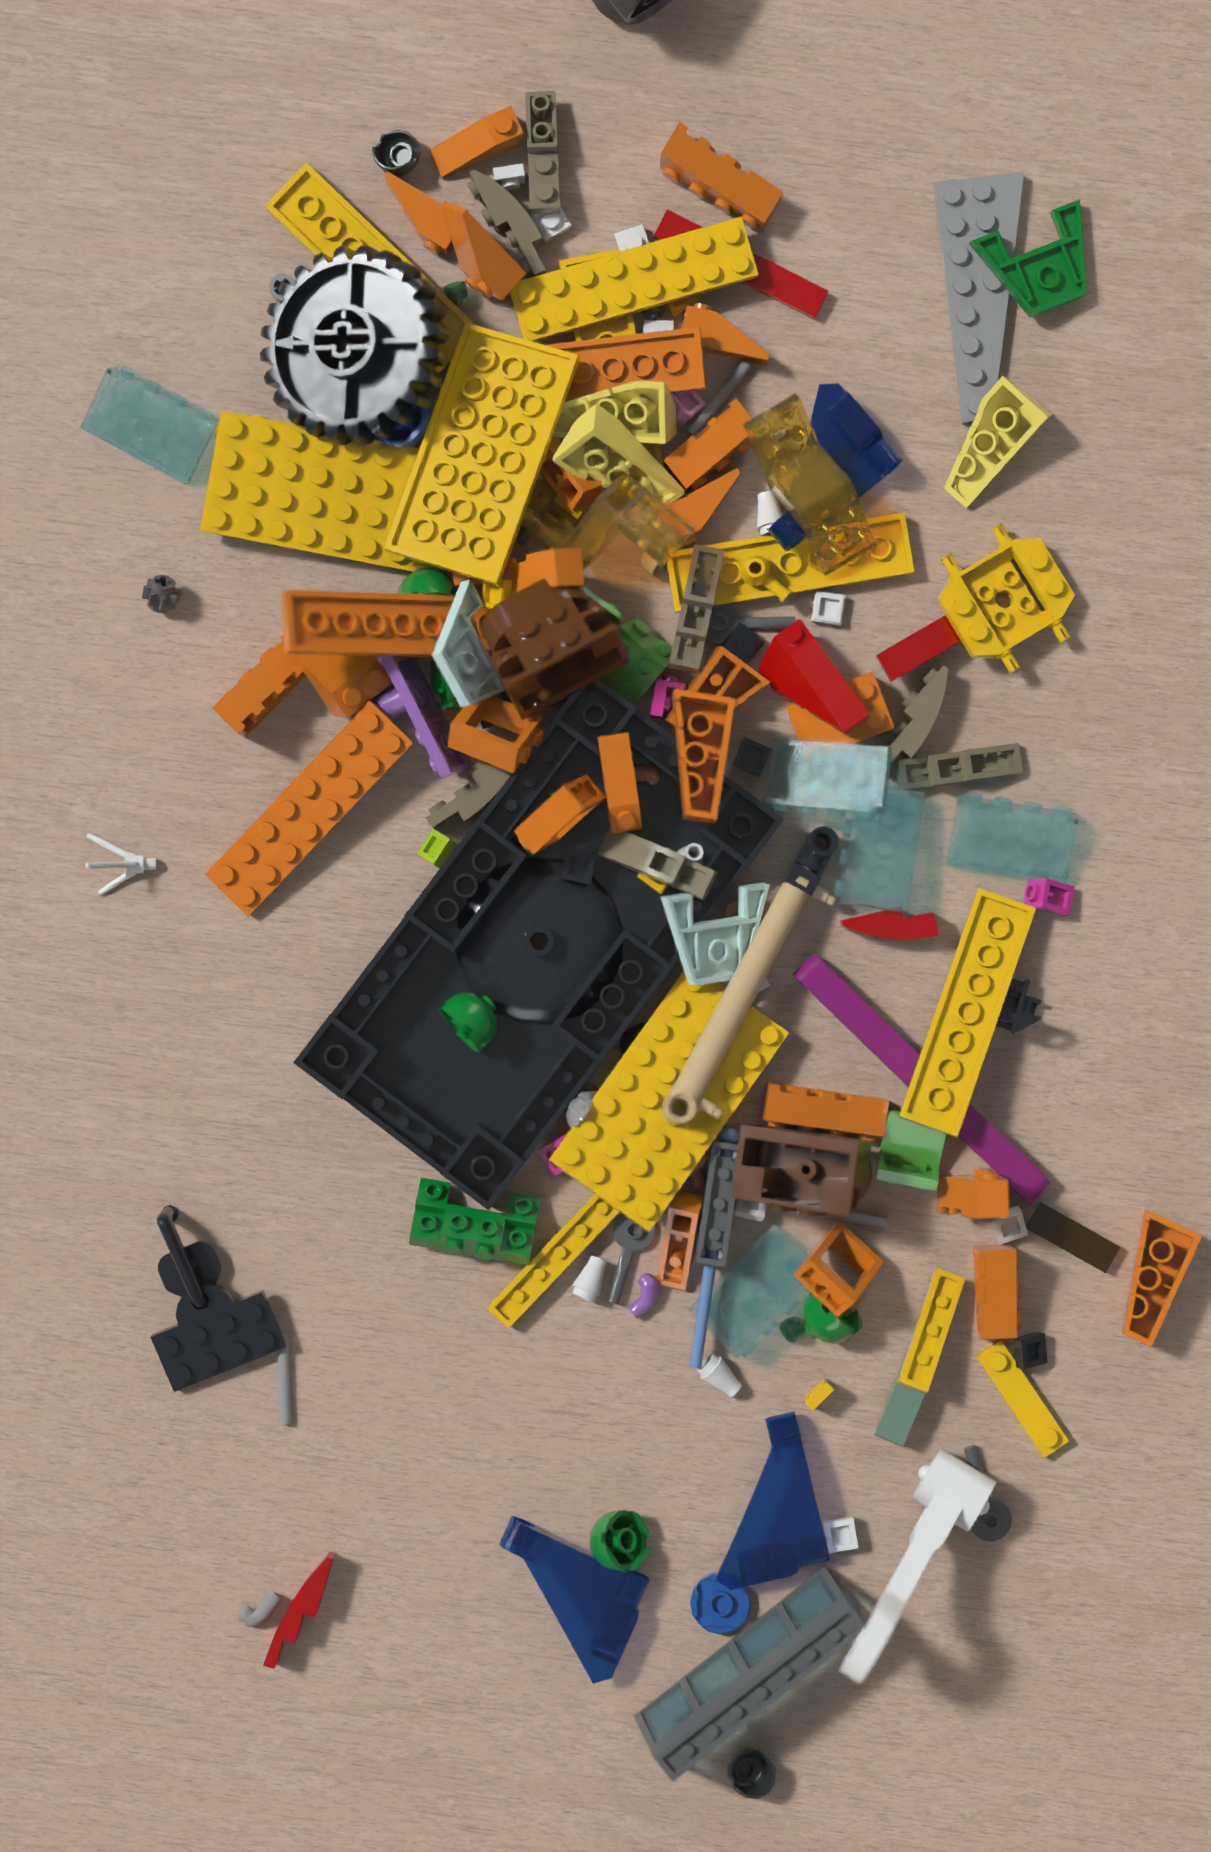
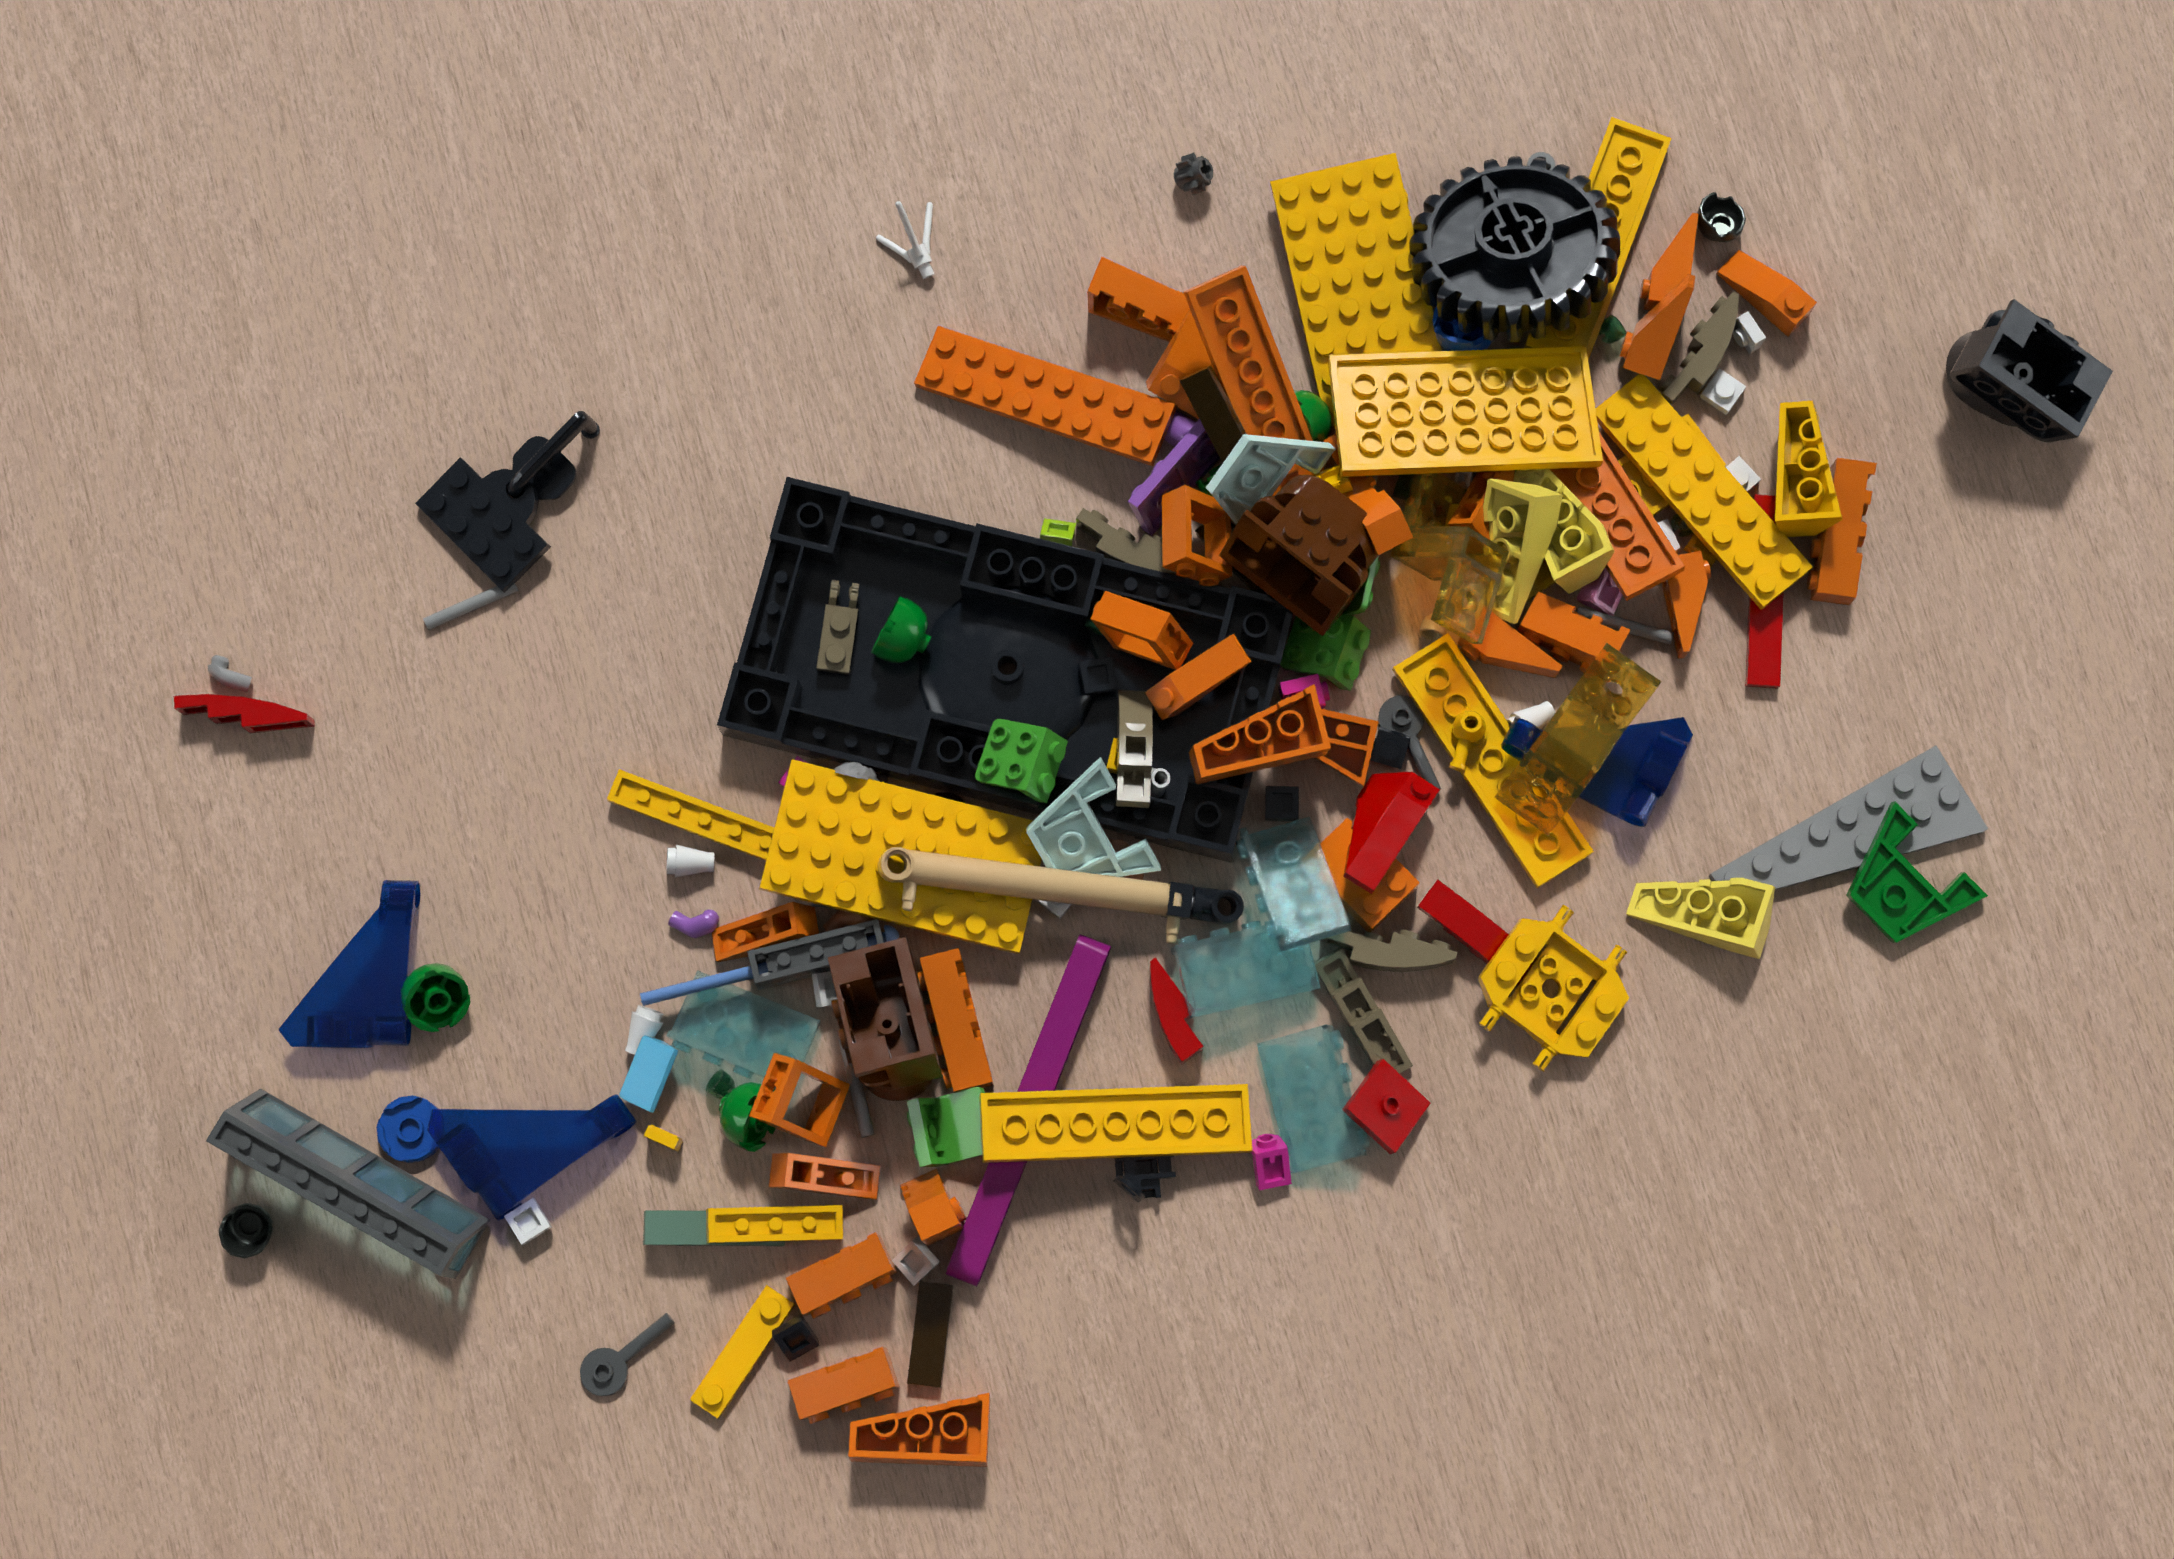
camera: 70 degrees right, 10 degrees down
(149, 423) = (1353, 97): clear light blue bracket -> none
(397, 670) = (1213, 410): none -> dark brown tile
(444, 1072) = (838, 632): none -> dark tan hinge
(473, 1230) = (692, 726): green bracket -> none
(542, 152) = (1786, 355): dark tan slope -> none
(629, 964) = (1021, 758): none -> bright green bracket
(630, 1238) = (744, 886): dark grey piece -> none
(647, 773) = (1219, 704): nougat arm -> none
(663, 188) = (1804, 480): none -> yellow wedge
(696, 609) = (1404, 684): dark tan slope -> none
(759, 1385) = (648, 1073): none -> medium azure slope
(828, 608) = (1464, 818): white tile -> none
(906, 1273) = (824, 1175): none -> orange slope
(951, 1496) = (612, 1311): white piece -> none
(1045, 780) = (1386, 1106): none -> red plate
(1086, 1325) = (844, 1385): none -> orange wedge

